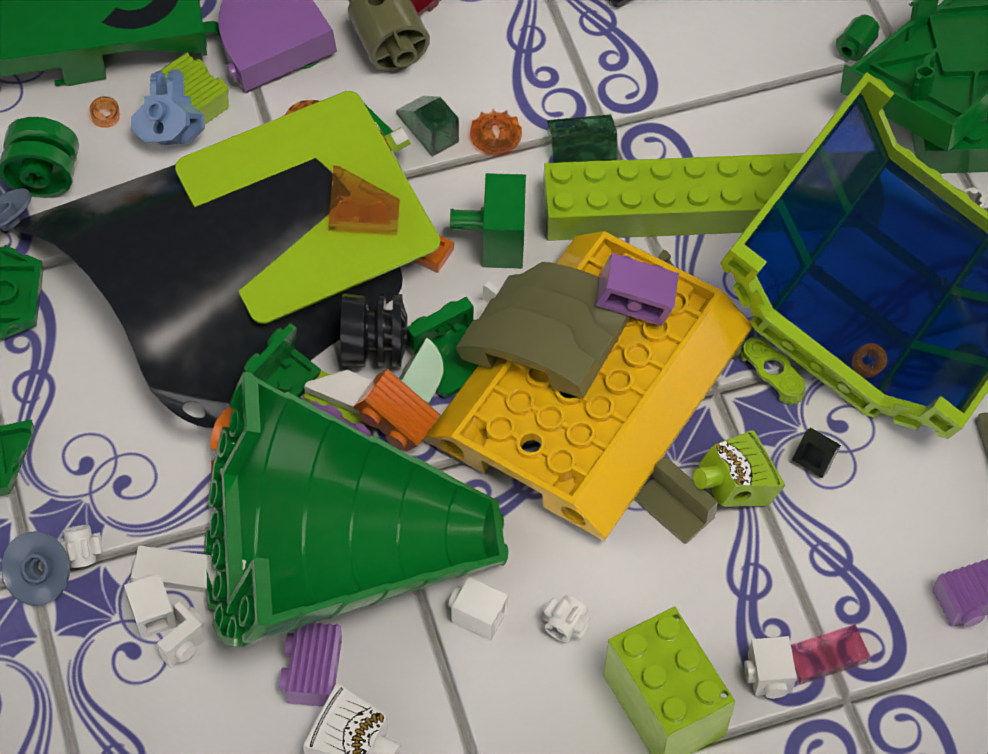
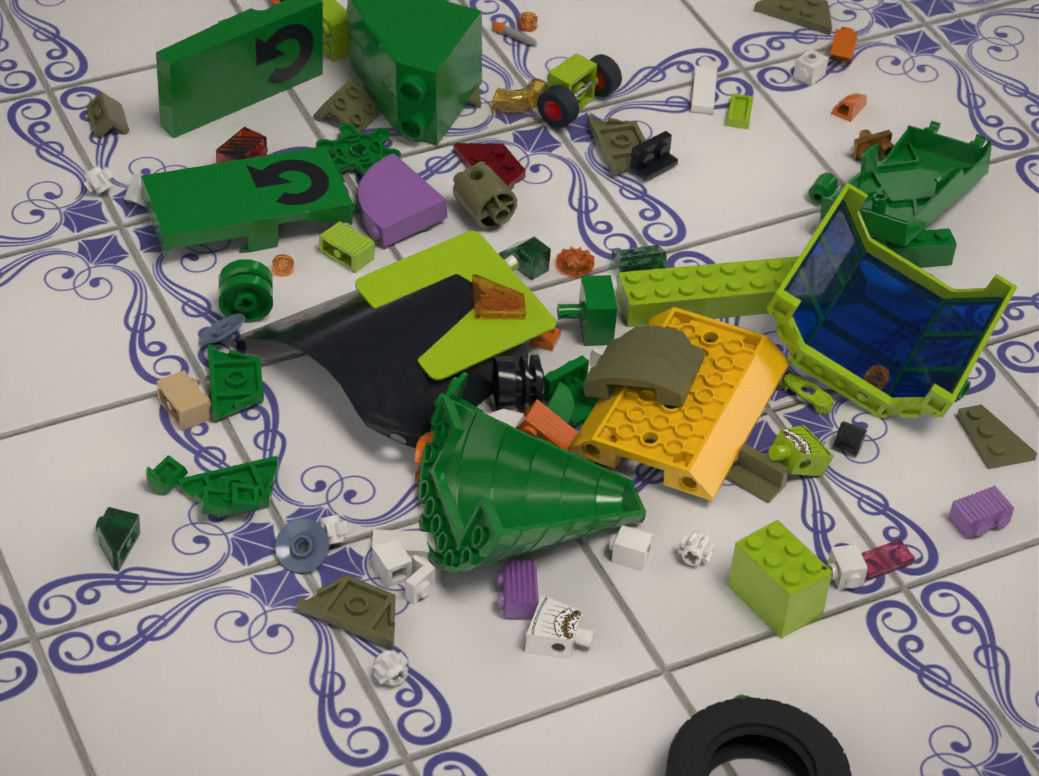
camera: 10 degrees left, 15 degrees down
(89, 674) = (355, 608): none -> olive wing
(167, 112) = (335, 259): medium blue hinge -> none
(637, 289) = (708, 333): medium lavender brick -> none

